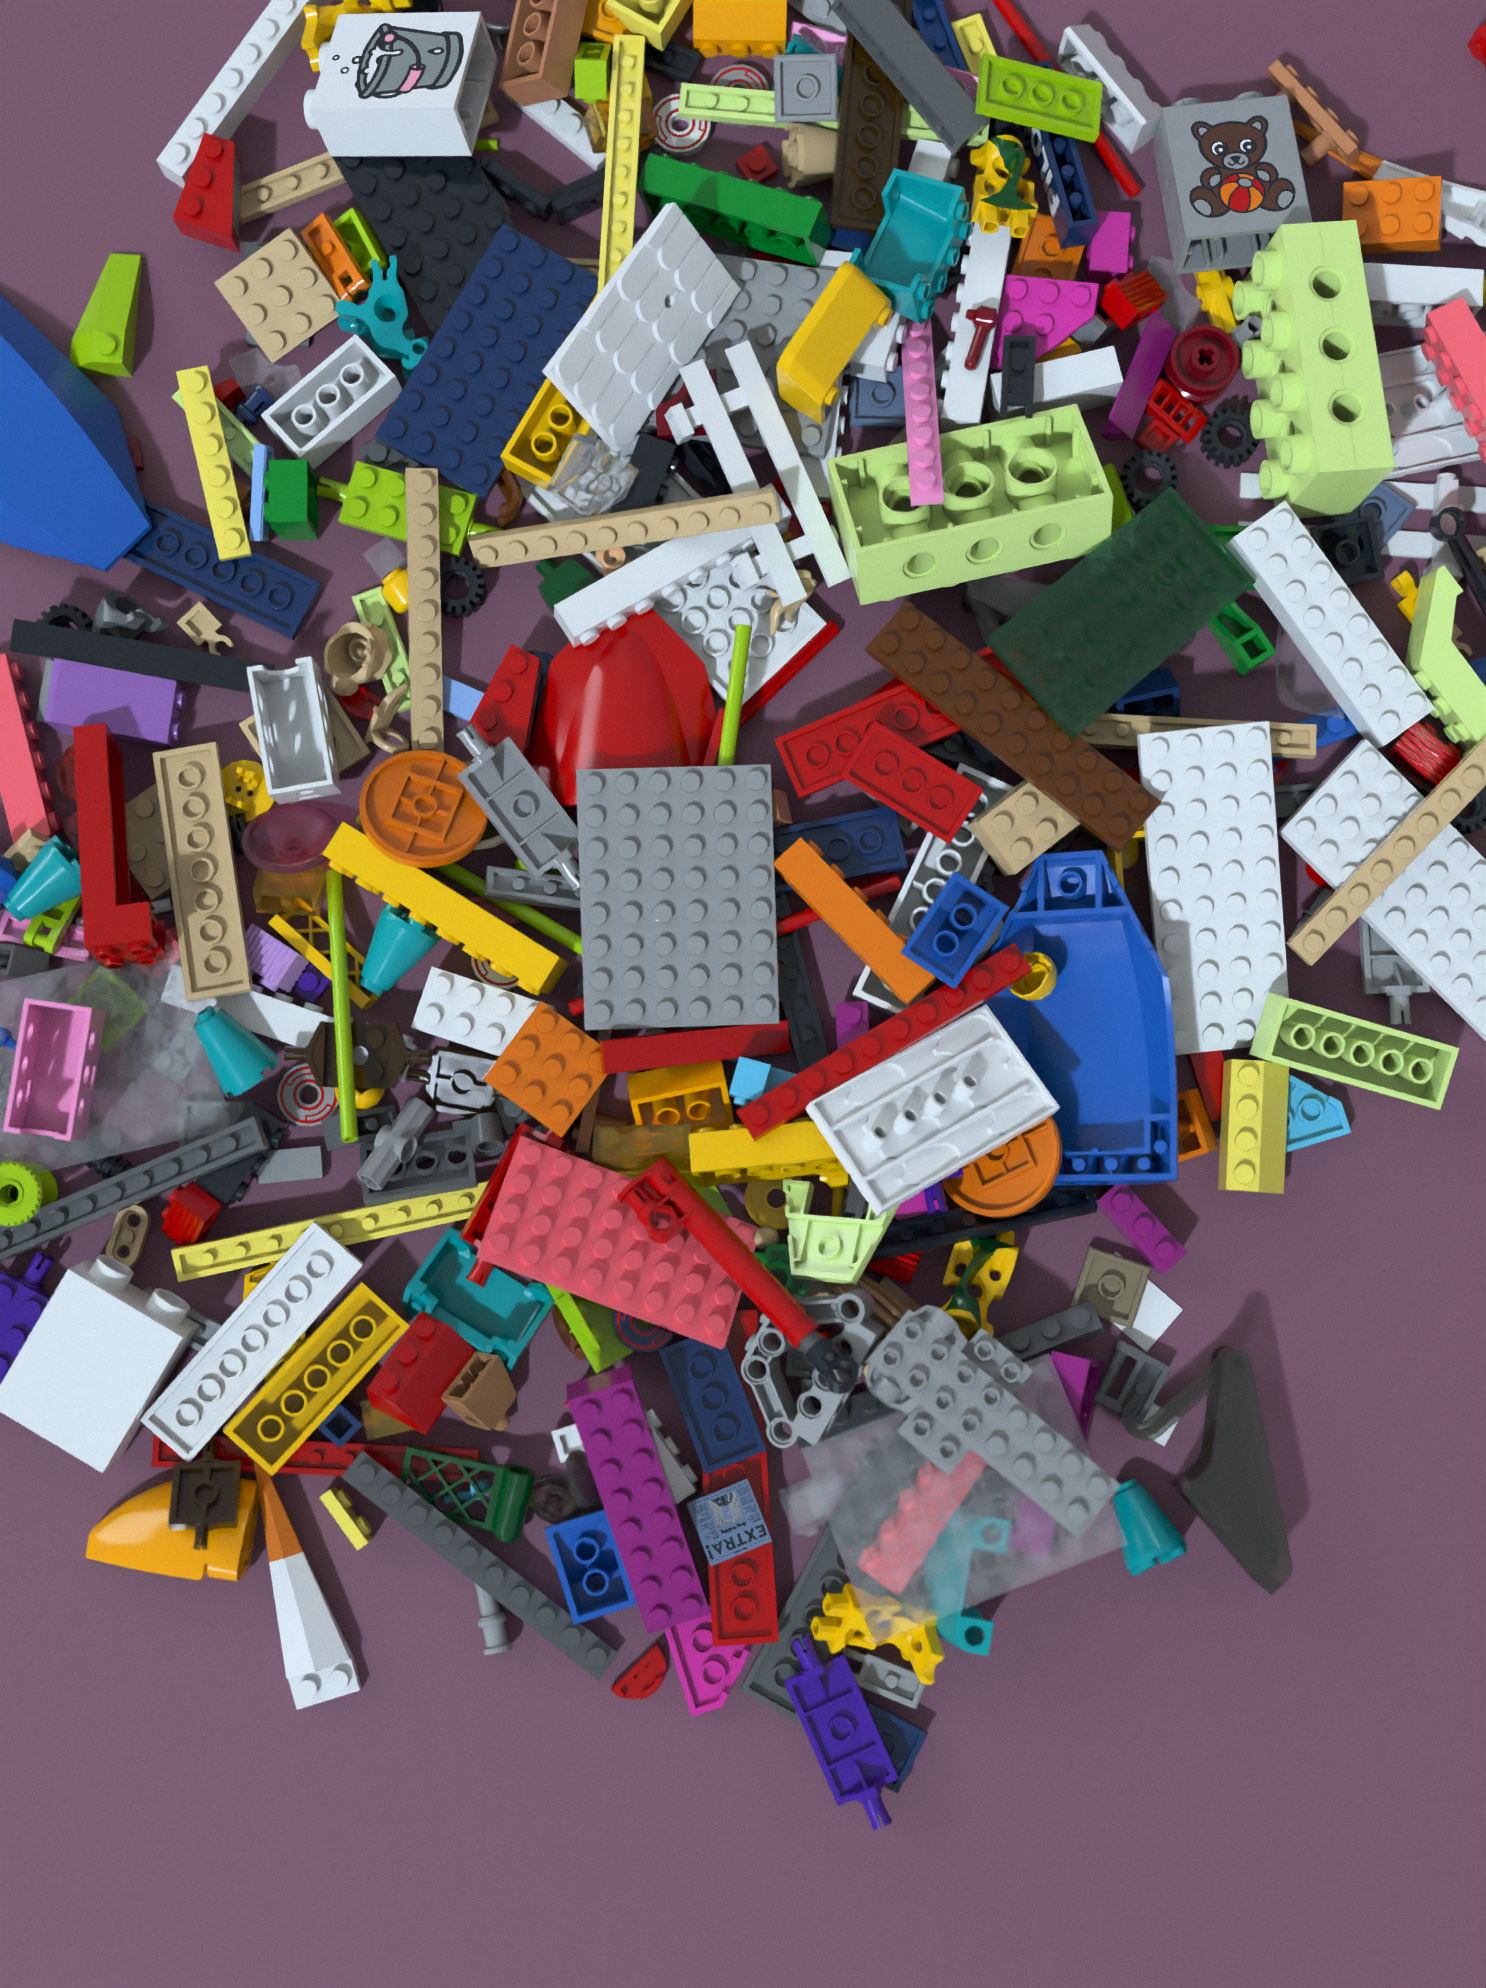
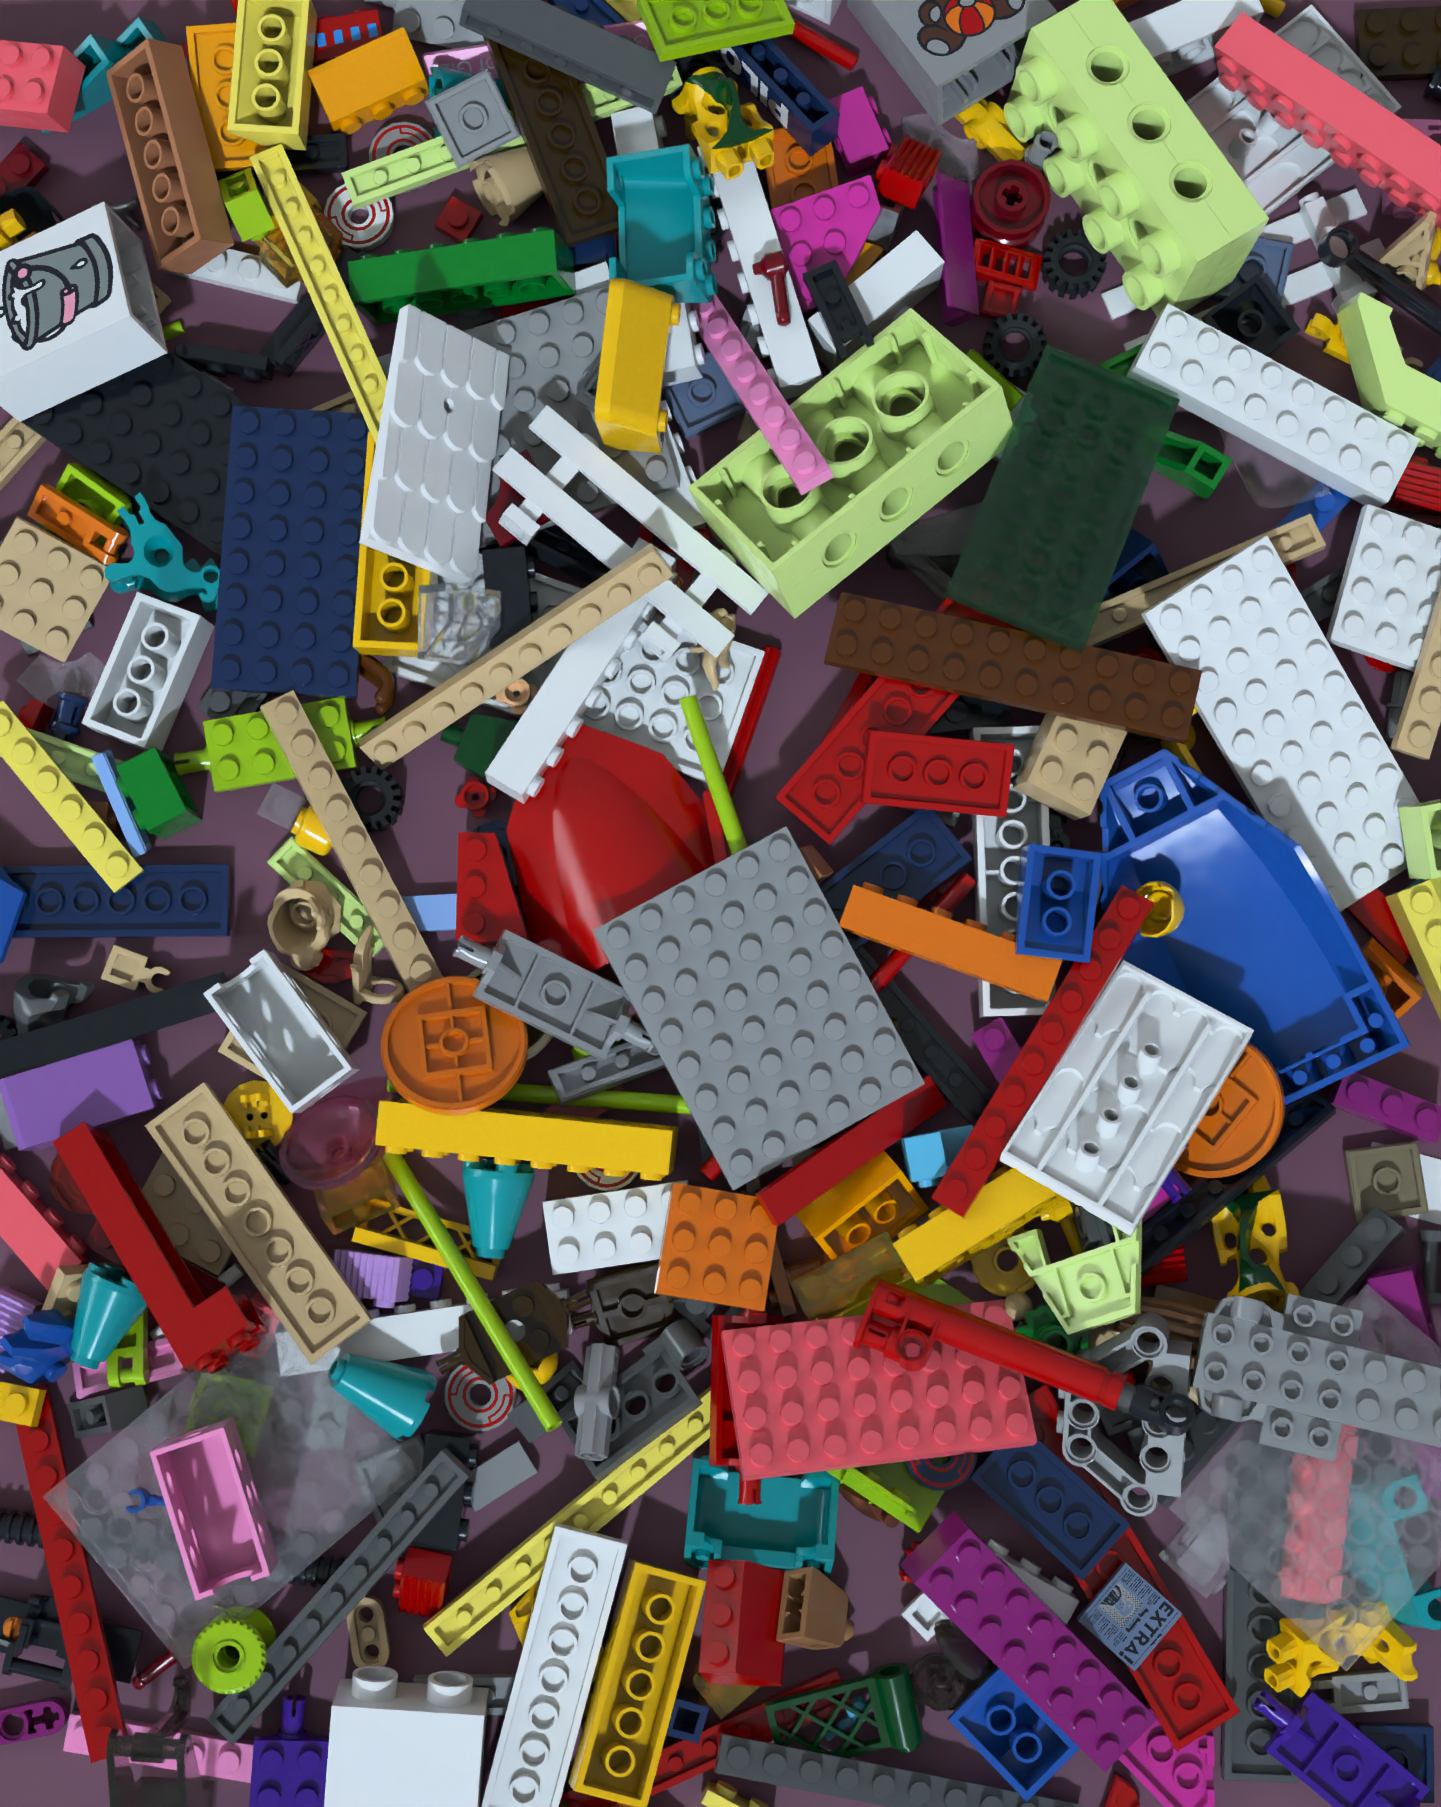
camera: 25 degrees left, 0 degrees up
(541, 617) = (472, 787): none -> red plate

